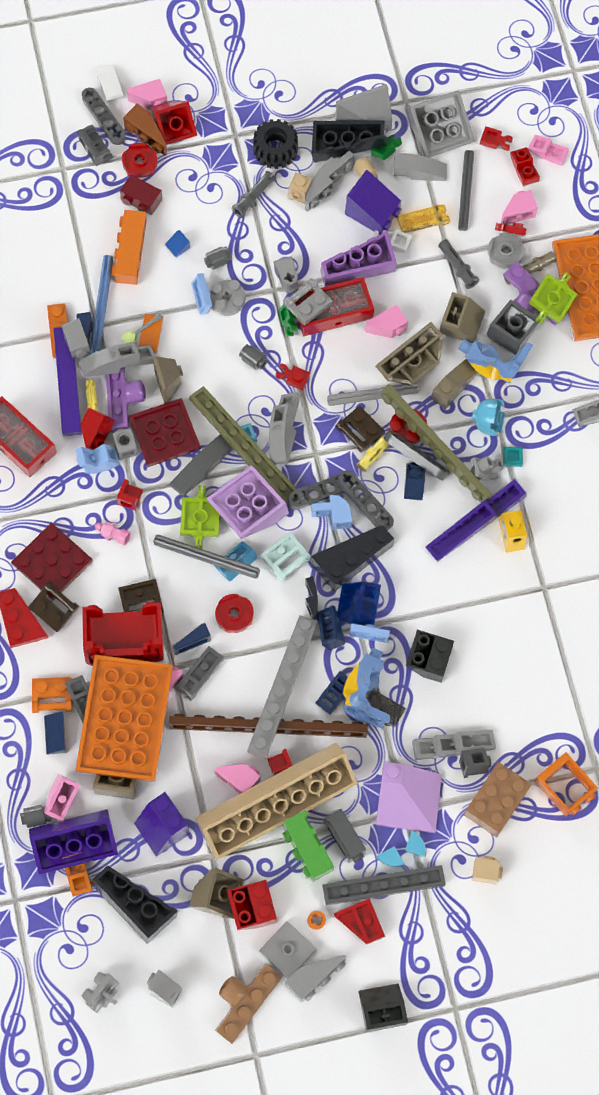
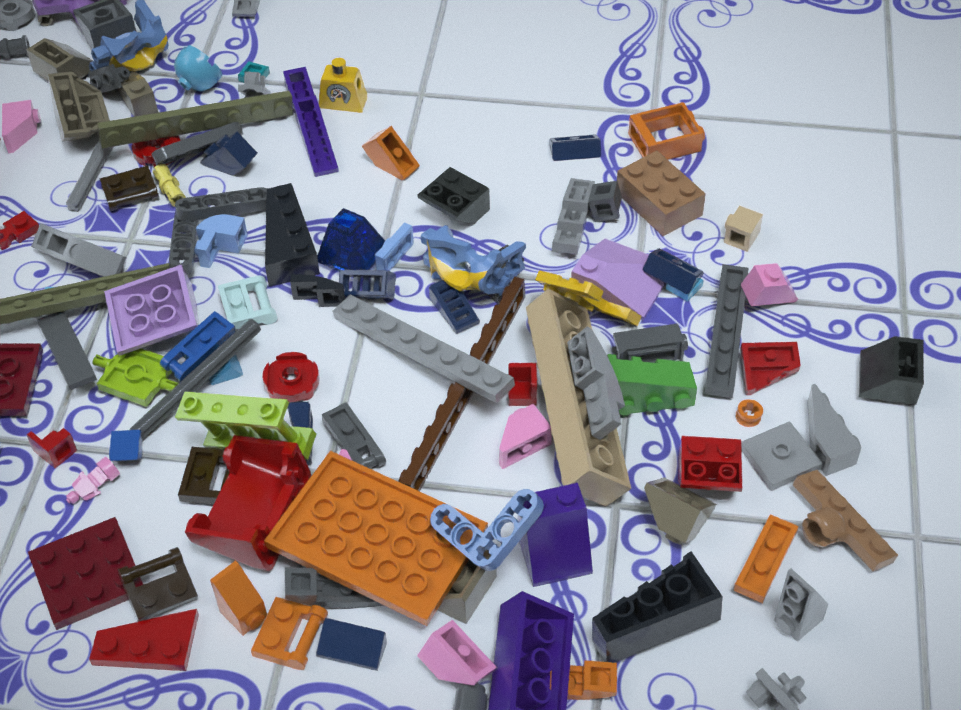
camera: 65 degrees left, 20 degrees down
(56, 658) = (238, 598): none -> orange slope
(131, 781) = (484, 541): none -> medium blue beam
(142, 539) = (125, 445): none -> blue slope
(168, 607) = (242, 416): none -> lime fence
(200, 960) = (766, 558): none -> orange plate
(229, 546) = (198, 345): none -> blue plate
(282, 808) = (598, 380): none -> light grey slope
(366, 769) = (586, 295): none -> yellow wing
(391, 858) = (692, 314): medium azure tile -> none
(421, 831) = (672, 270): none -> dark blue slope
(430, 905) = (768, 285): none -> bright pink slope
(453, 361) = (108, 77): none -> dark grey hinge
(461, 592) = (390, 153): none -> orange slope
(530, 721) = (575, 147): none -> dark blue slope

